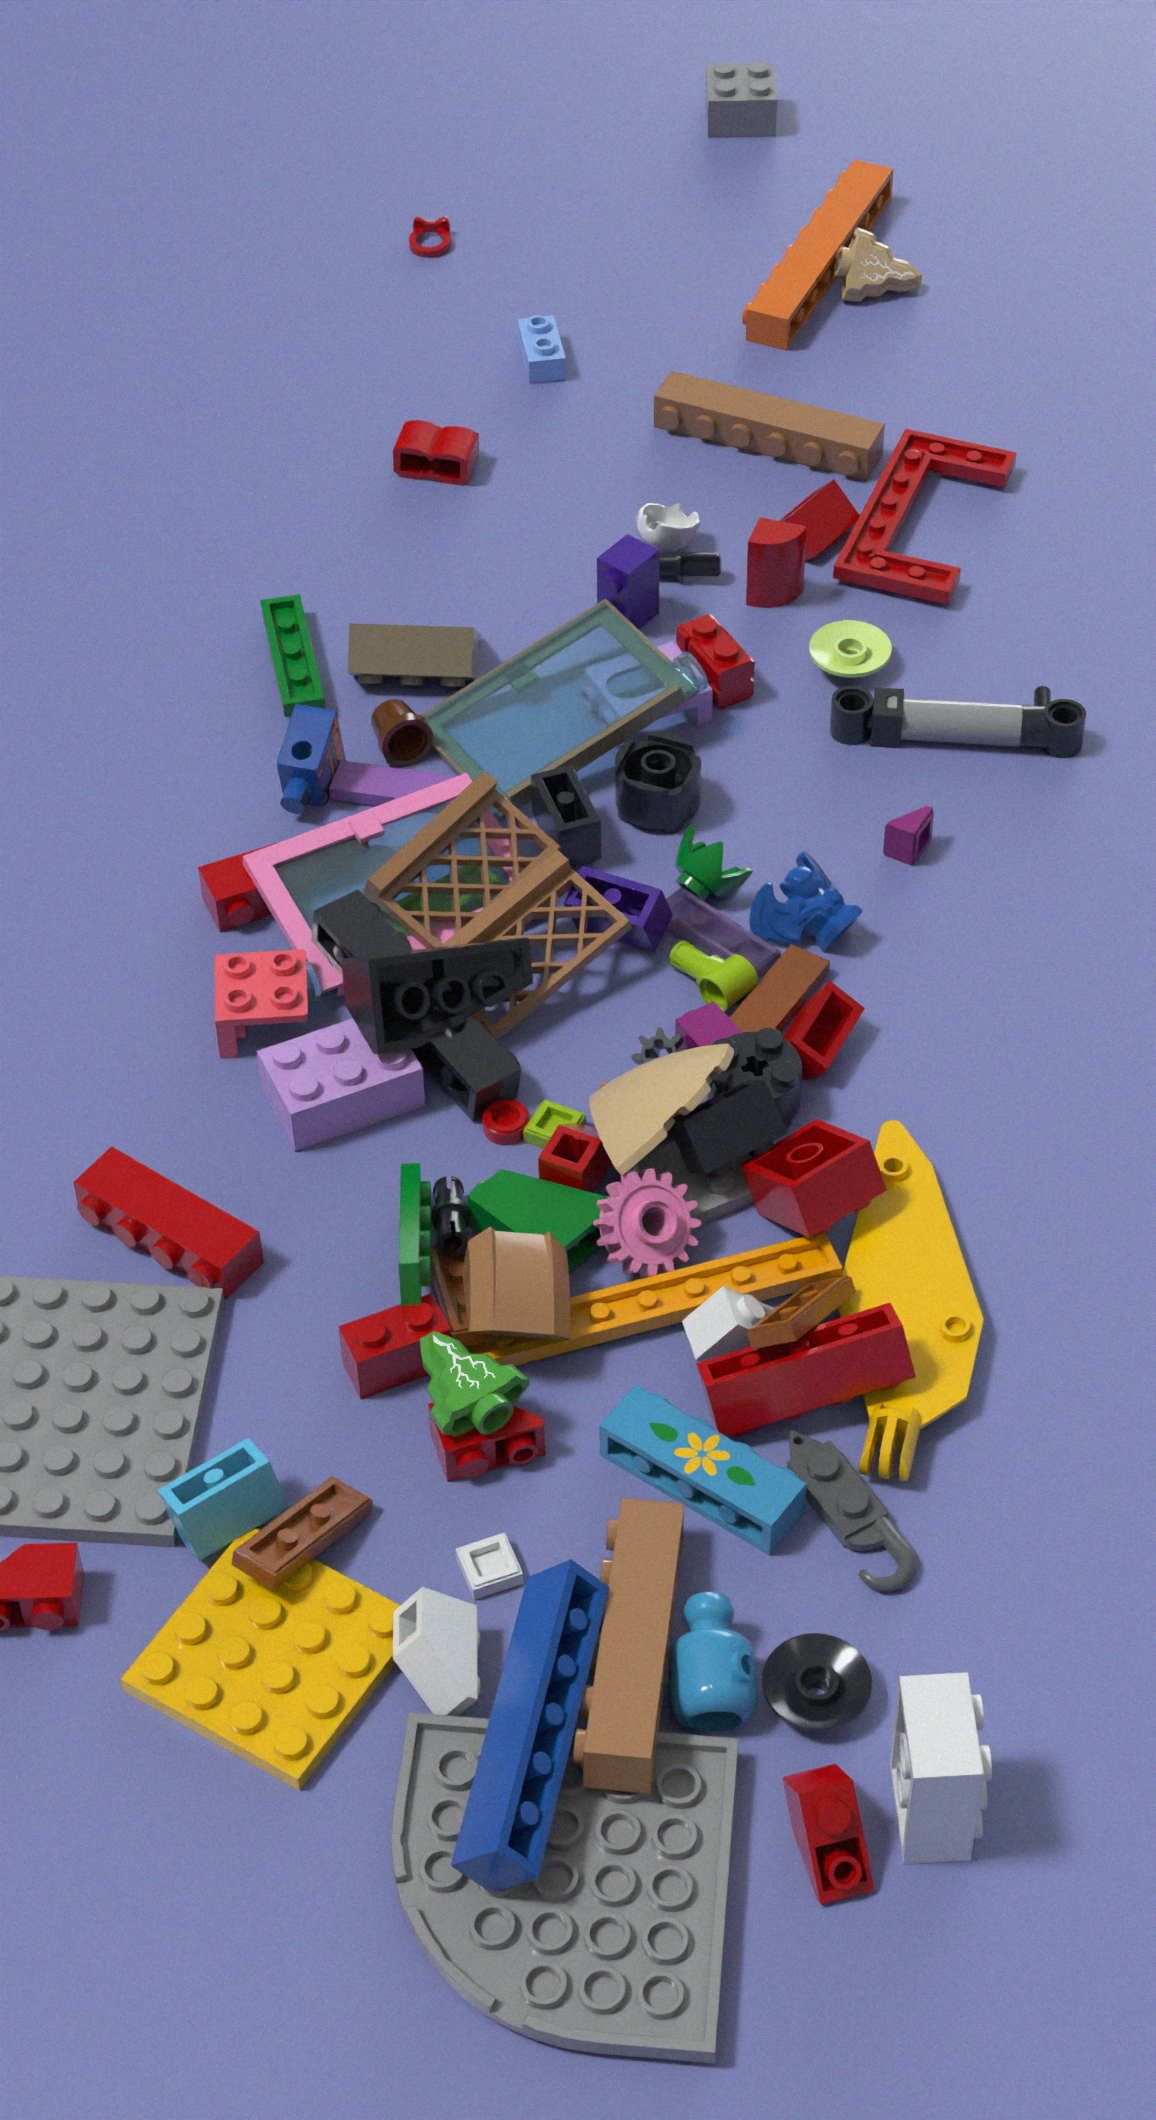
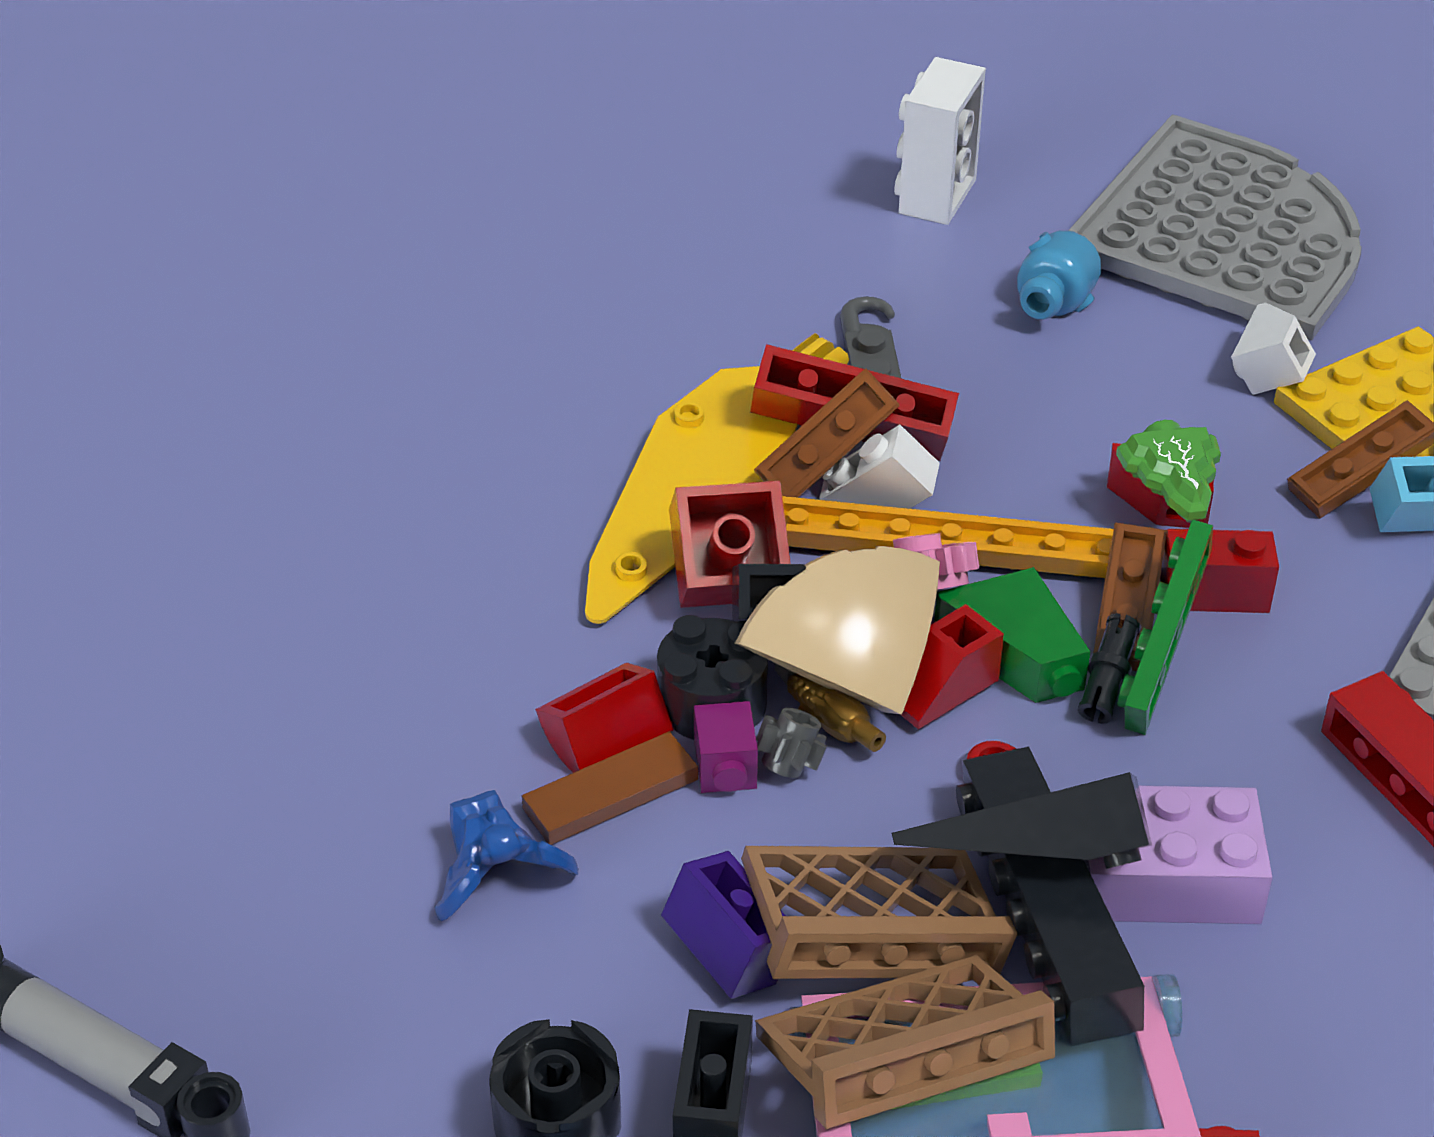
camera: 155 degrees left, 5 degrees down
(258, 991) = (1240, 974): coral bracket -> none
(489, 1566) = (1200, 410): white tile -> none
(517, 1285) = (1089, 532): medium nougat slope -> none
(531, 1728) = (1224, 254): blue brick -> none
(546, 1120) = (942, 742): lime tile -> none
(633, 1647) = (1110, 299): medium nougat brick -> none
(702, 869) = (591, 943): green piece -> none
(703, 1469) = (991, 407): dark azure brick -> none
(716, 933) = (621, 895): clear purple tile -> none
(716, 978) = (661, 819): lime pin -> none
(819, 1663) = (978, 252): black dish -> none
(829, 1832) = (1025, 180): red slope -> none
(909, 835) = (298, 906): magenta slope -> none

